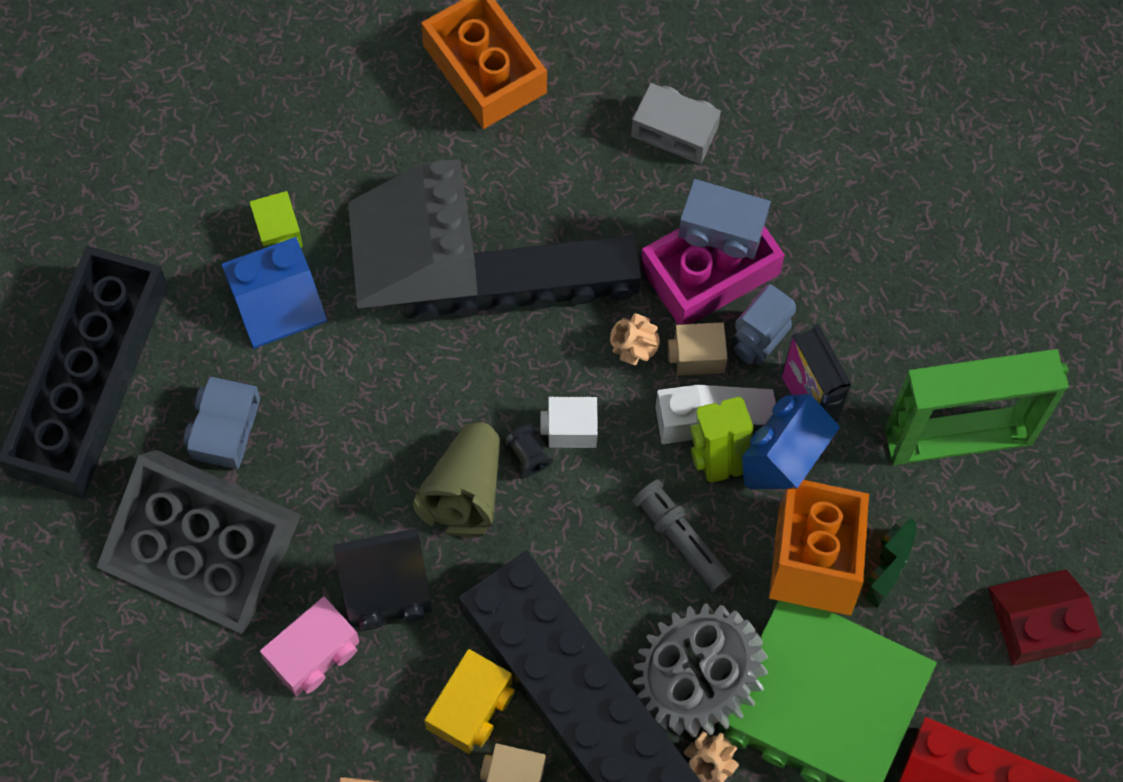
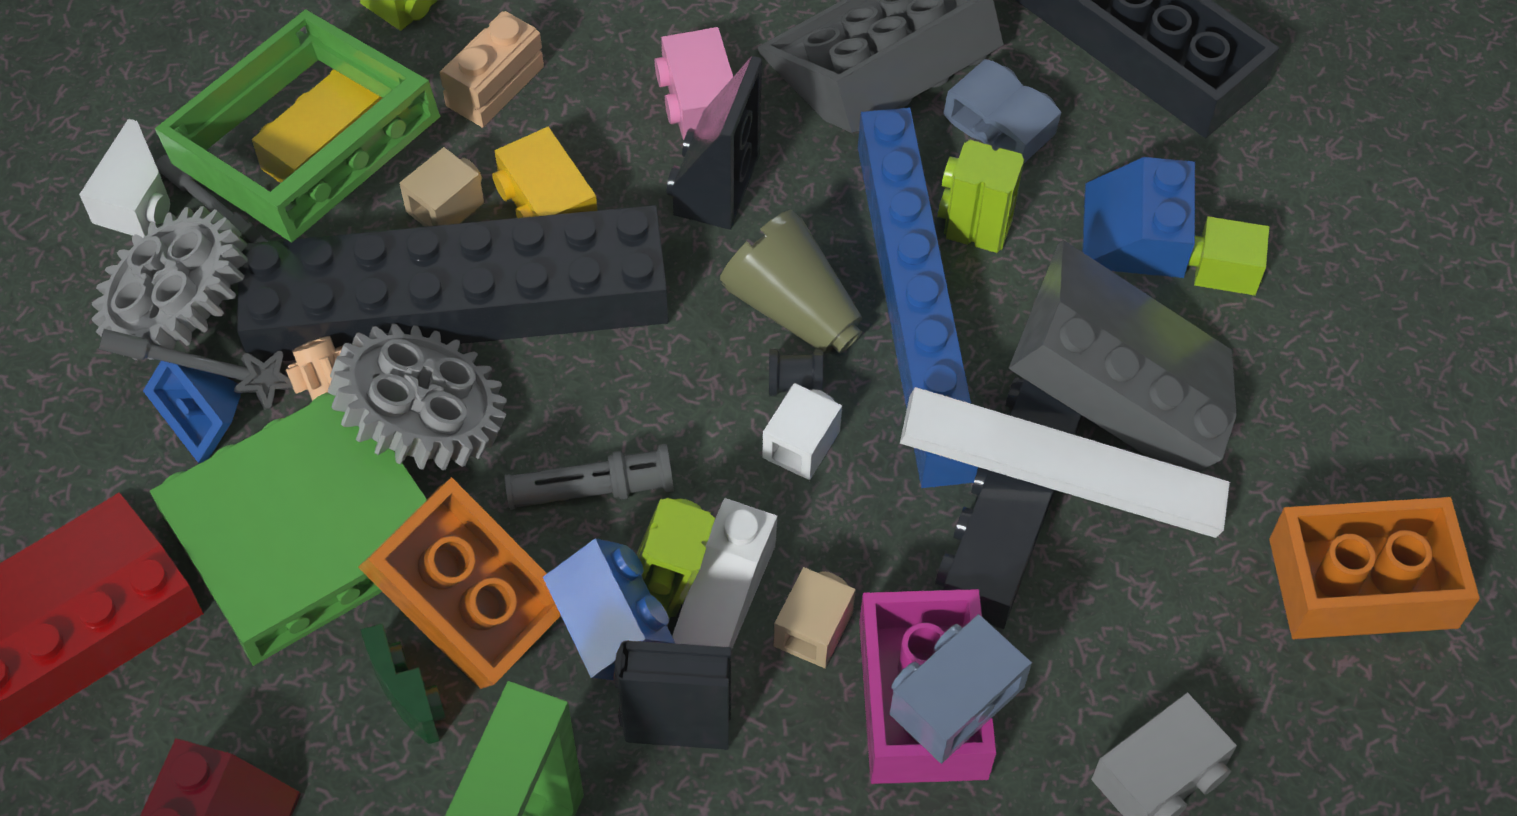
camera: 120 degrees right, 10 degrees down
(324, 389) = (981, 195): none -> lime brick
(418, 405) = (912, 274): none -> blue brick
(519, 245) = (1065, 462): none -> white tile
(634, 339) = (869, 548): light nougat gear -> none
(763, 325) = (795, 688): sand blue brick -> none

